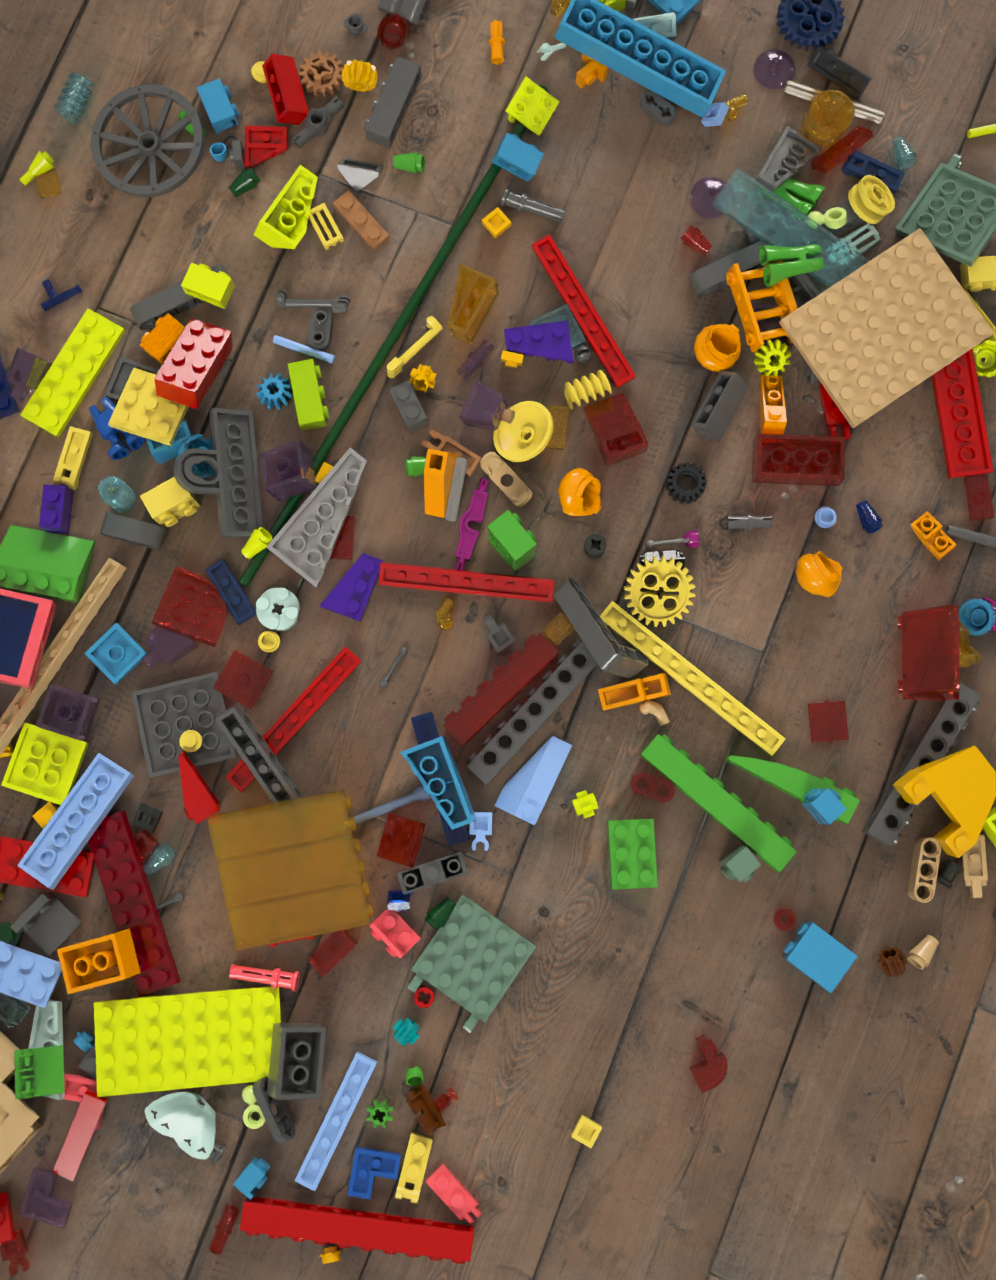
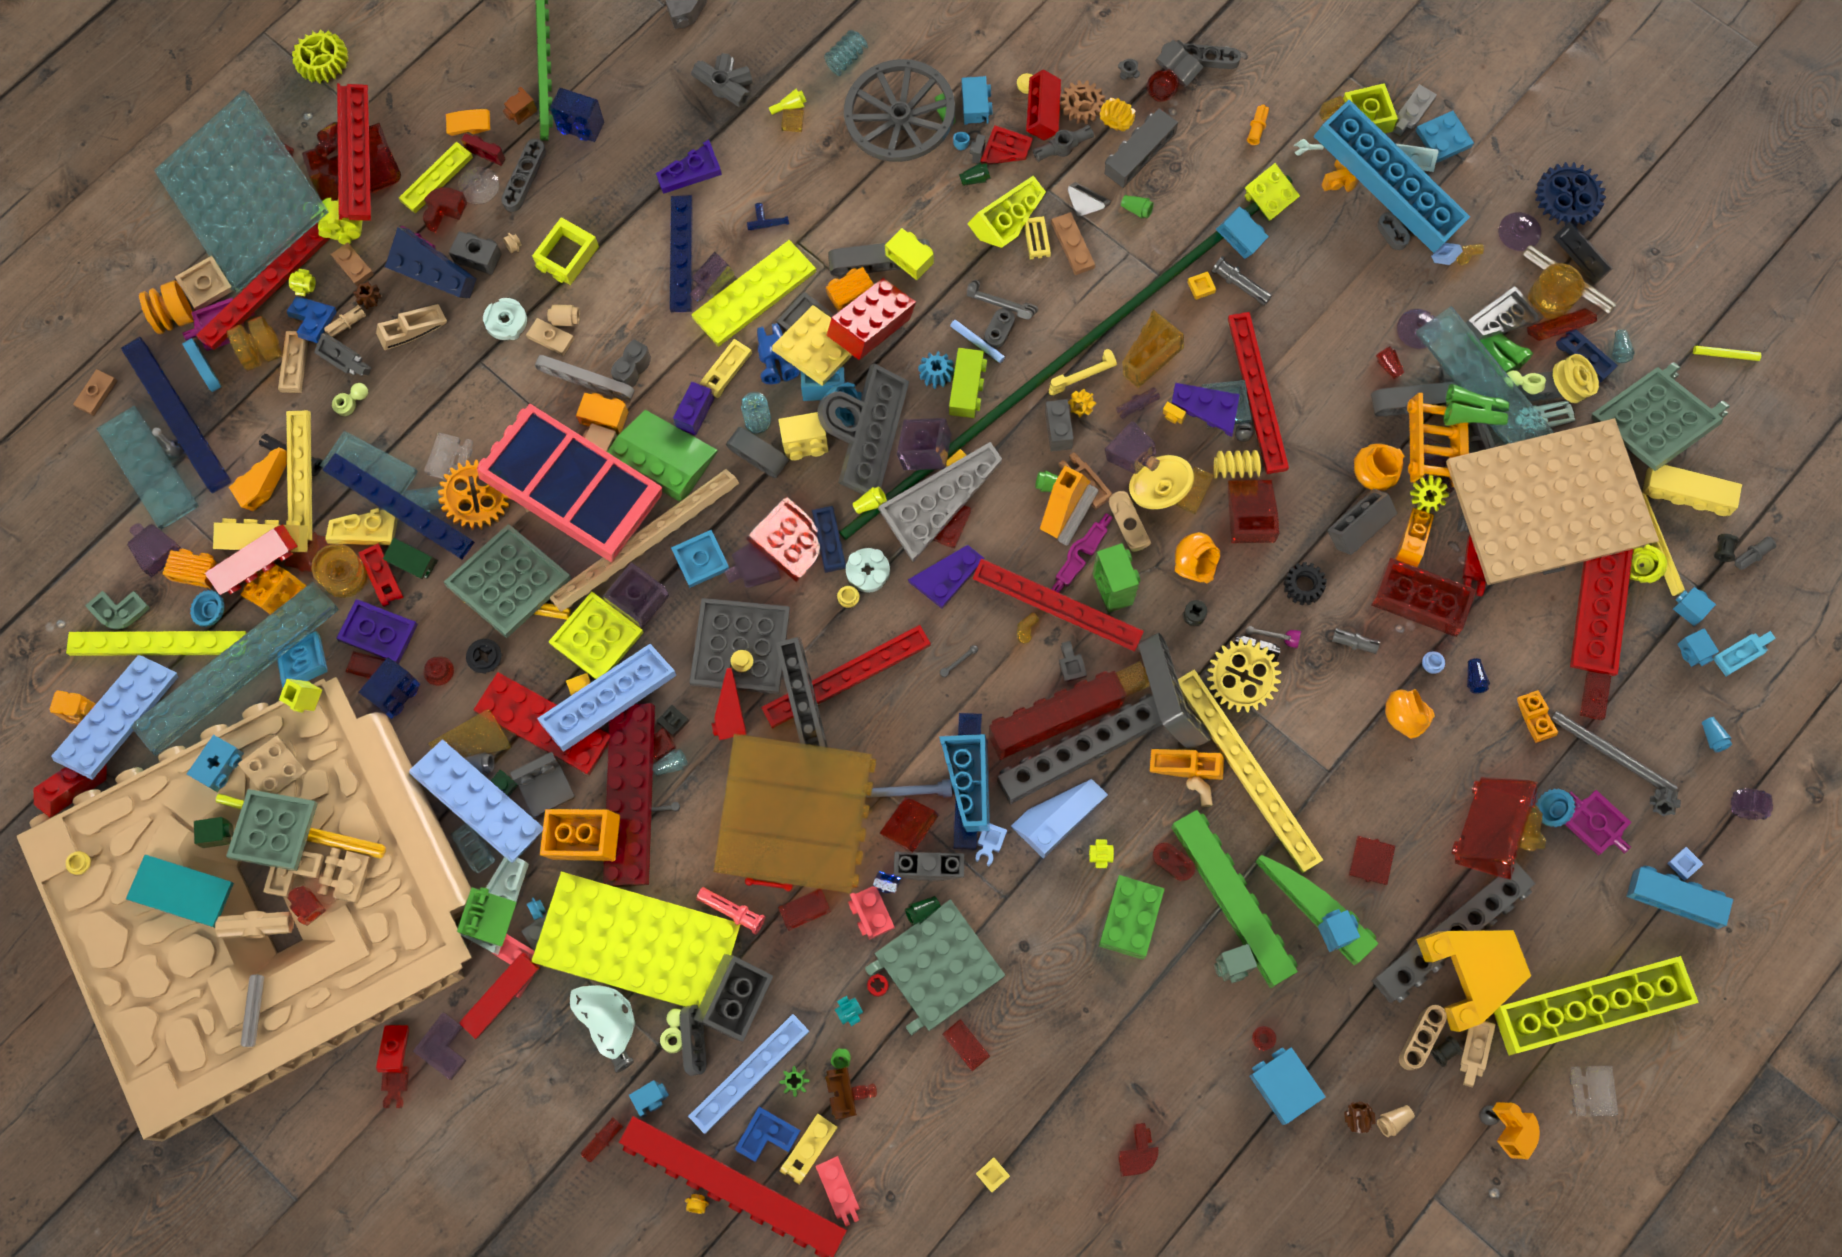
camera: 20 degrees right, 10 degrees down
(242, 679) = (811, 622): clear red plate -> none
(522, 1021) = (966, 1045): none -> clear red tile

